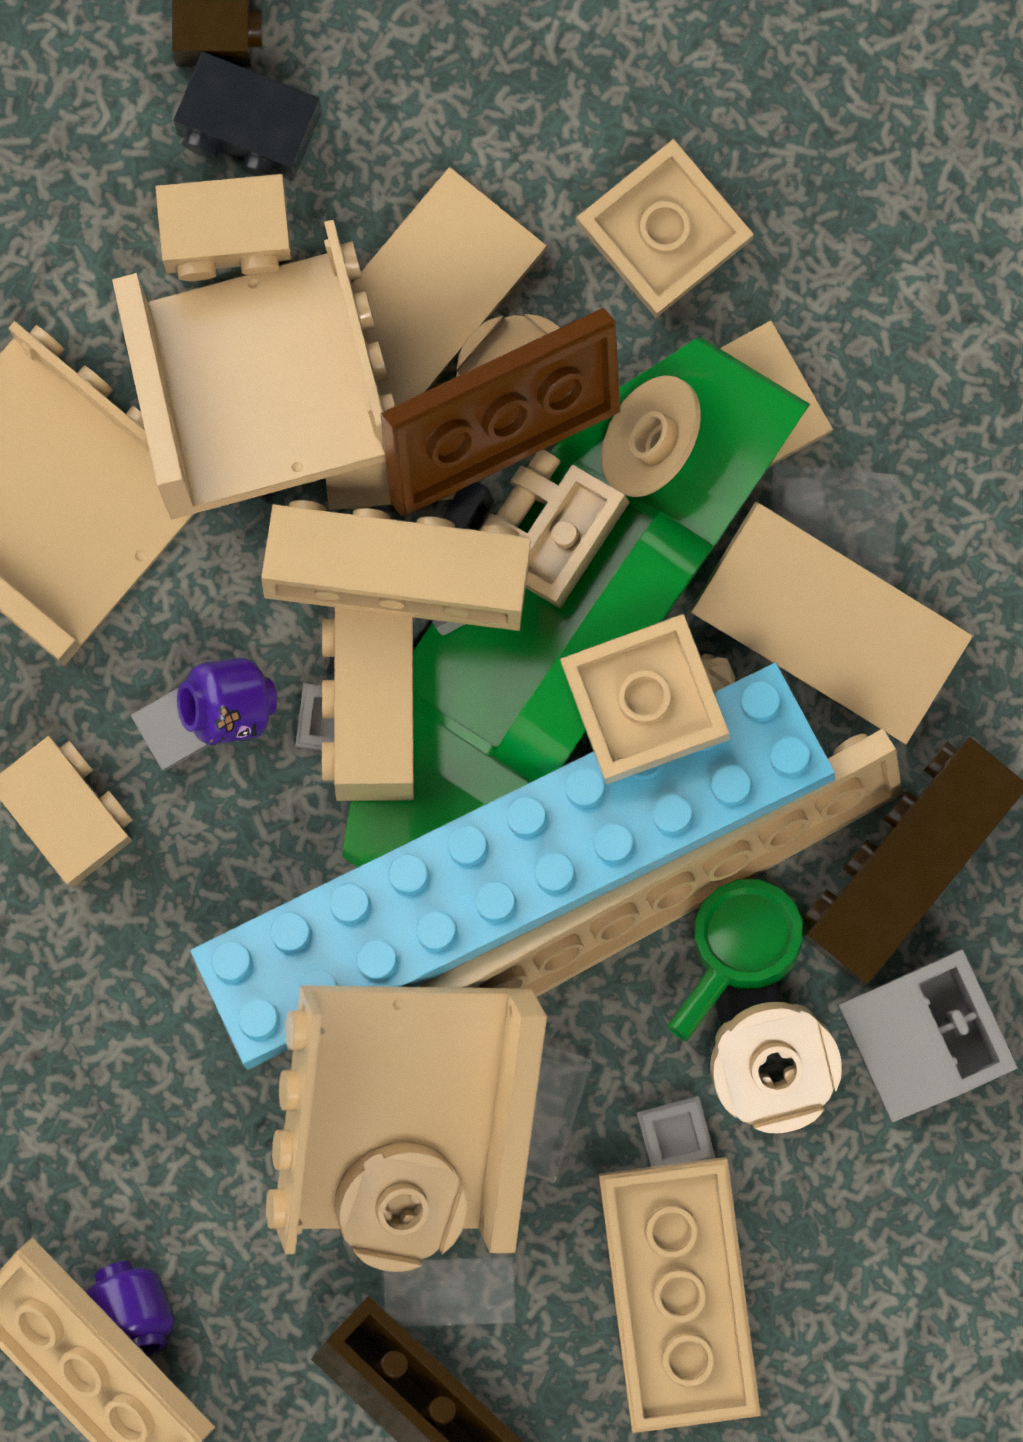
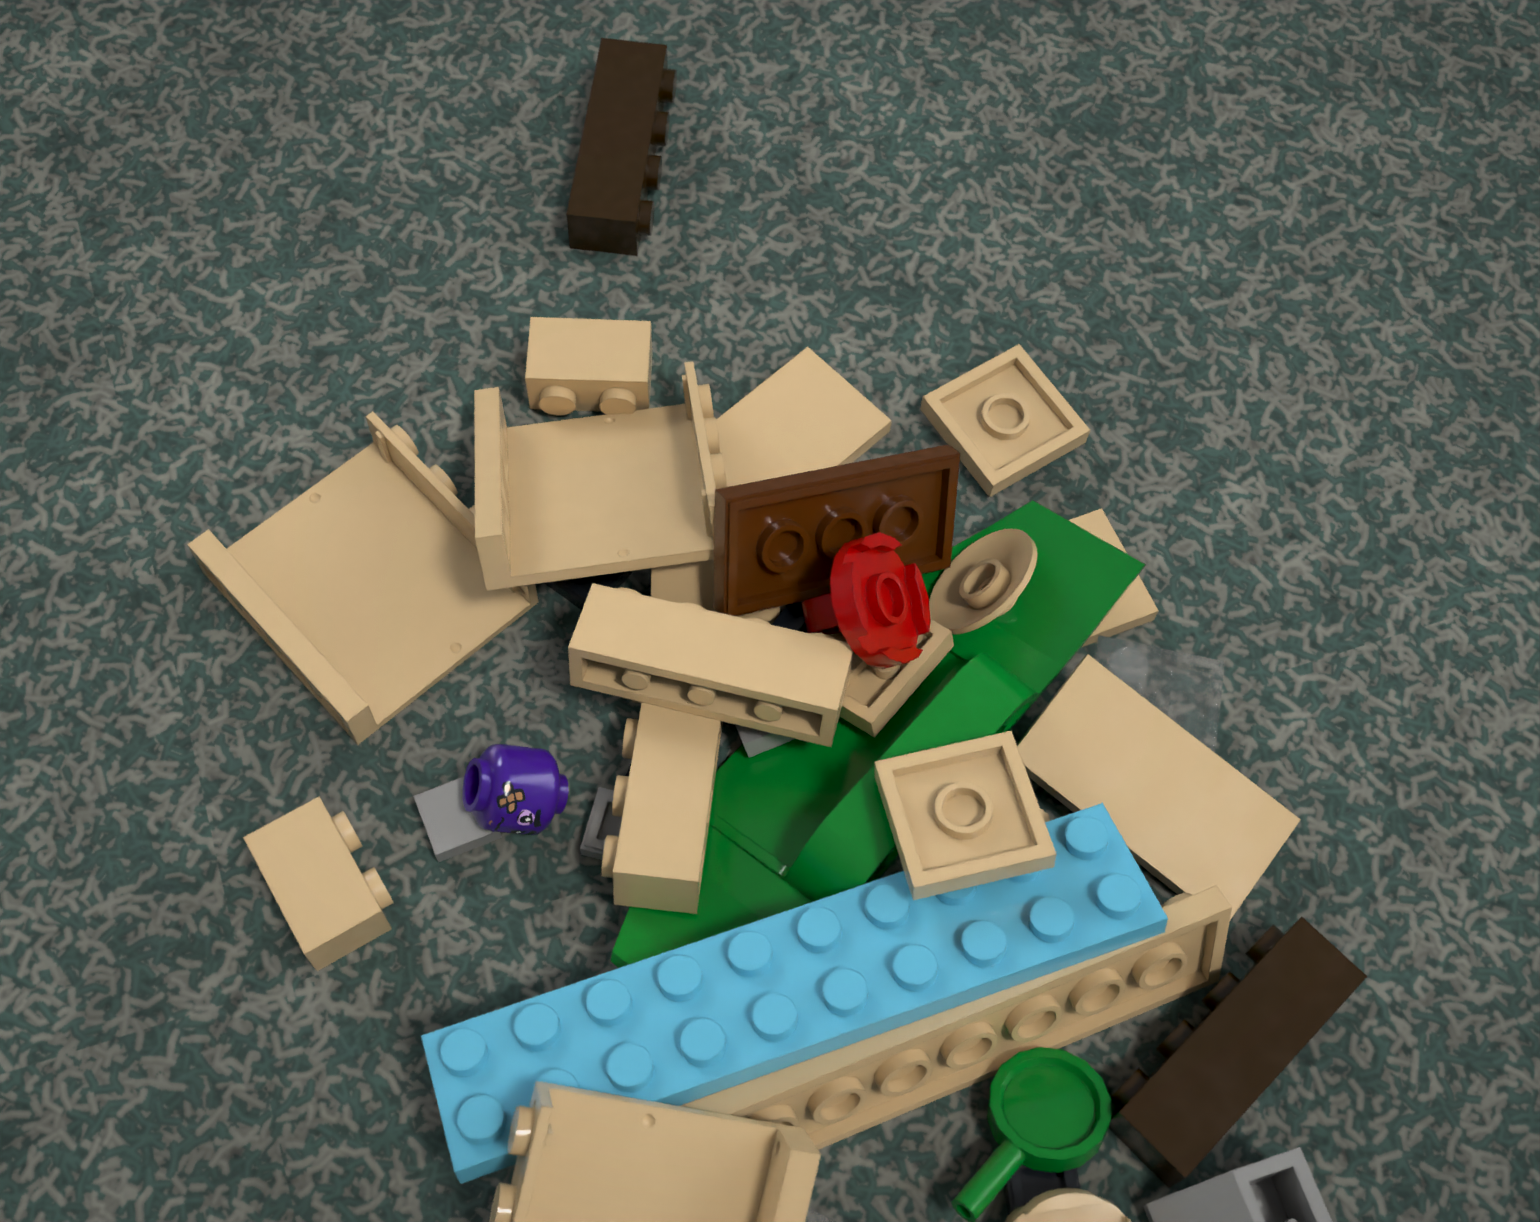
camera: 10 degrees right, 20 degrees down
(246, 118) = (626, 279): black brick -> none
(545, 488) = (873, 602): none -> red tile

